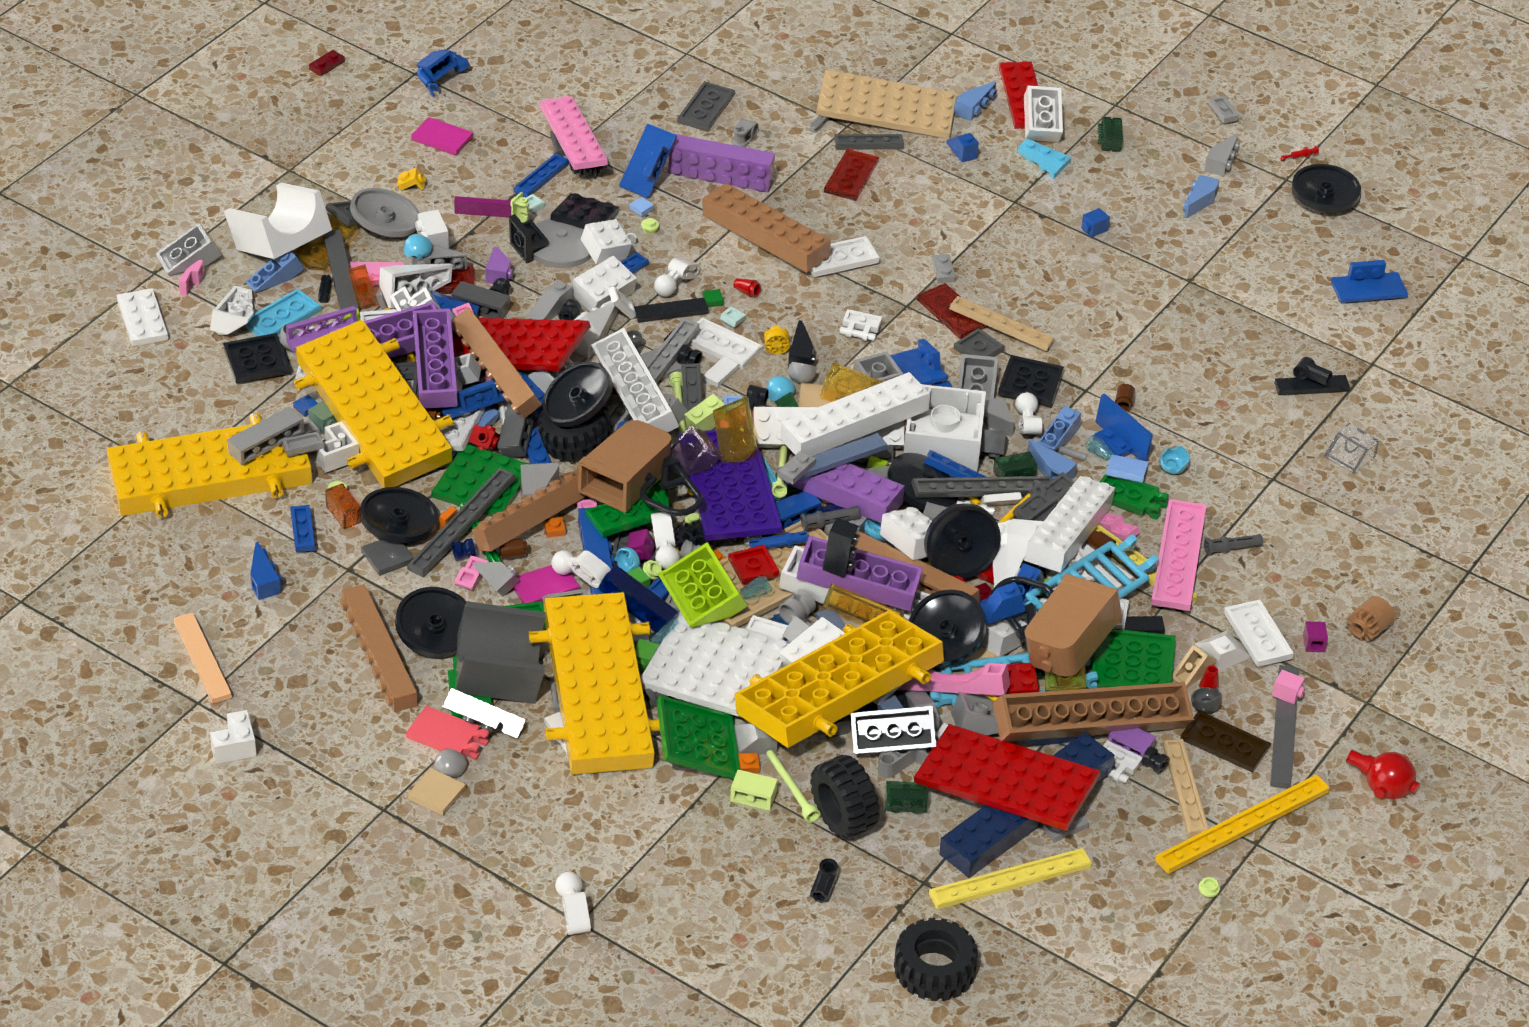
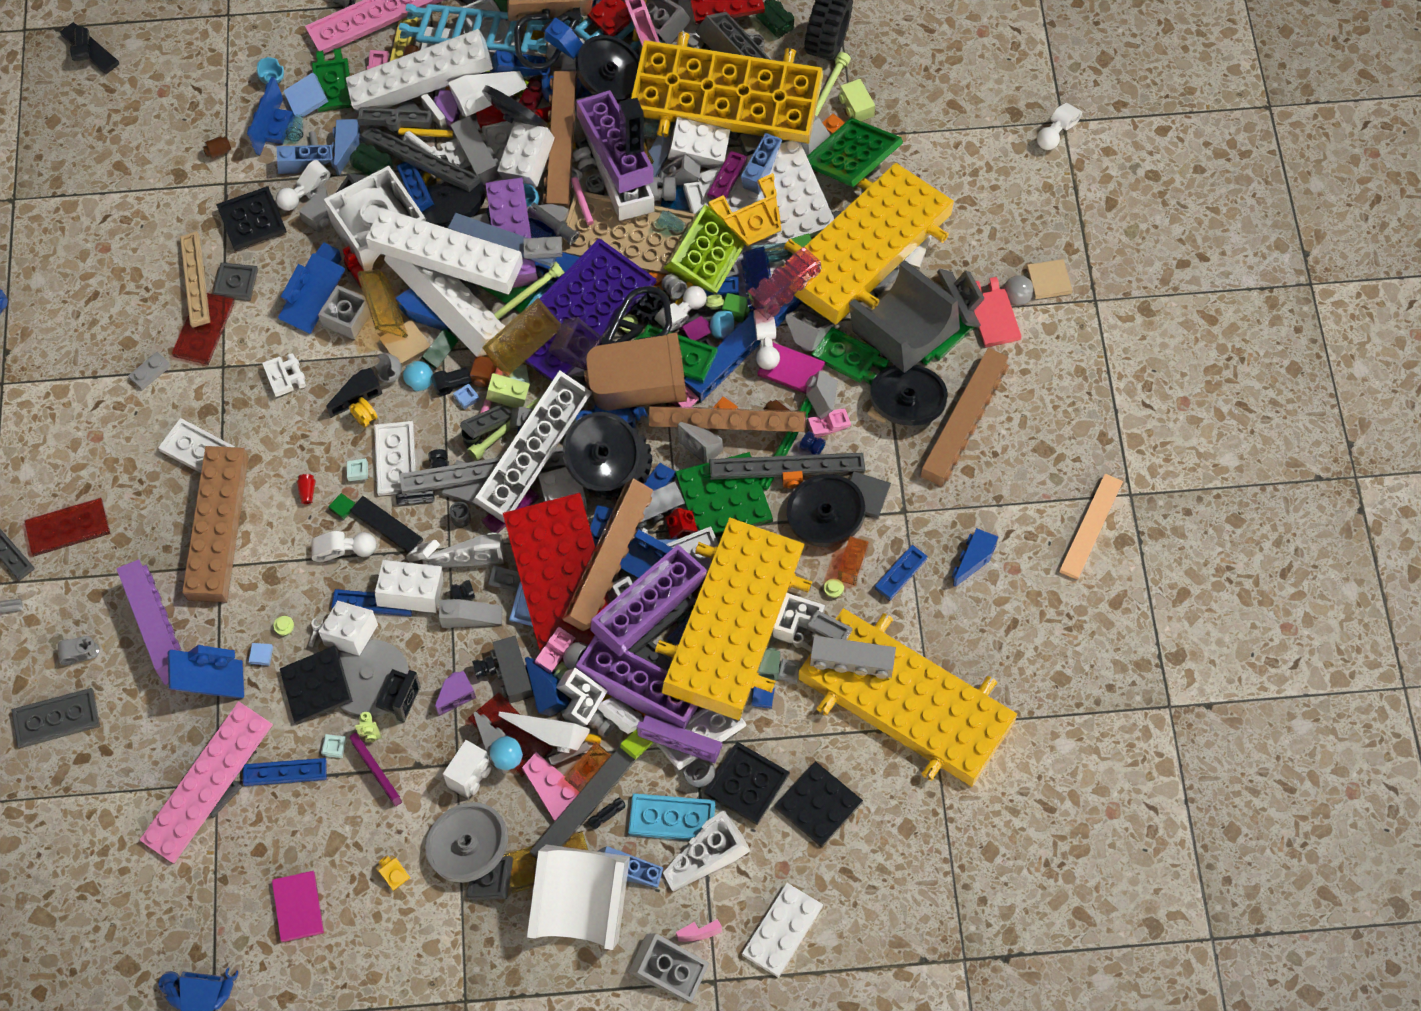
camera: 125 degrees left, 20 degrees up
(198, 384) = (818, 804): none -> black plate
(236, 741) = (1143, 426): white brick -> none
(600, 569) = (784, 283): none -> clear pink wedge
(694, 624) = (755, 220): none -> yellow wing
(720, 371) = (434, 432): white tile -> none
(743, 658) = (761, 162): none -> medium blue slope
(753, 563) = (648, 240): red plate -> none
(763, 648) = (727, 175): none -> magenta tile
(787, 539) = (594, 234): blue pin -> none
(824, 880) = (888, 13): black piece -> none
(979, 374) = (286, 247): light grey slope -> none

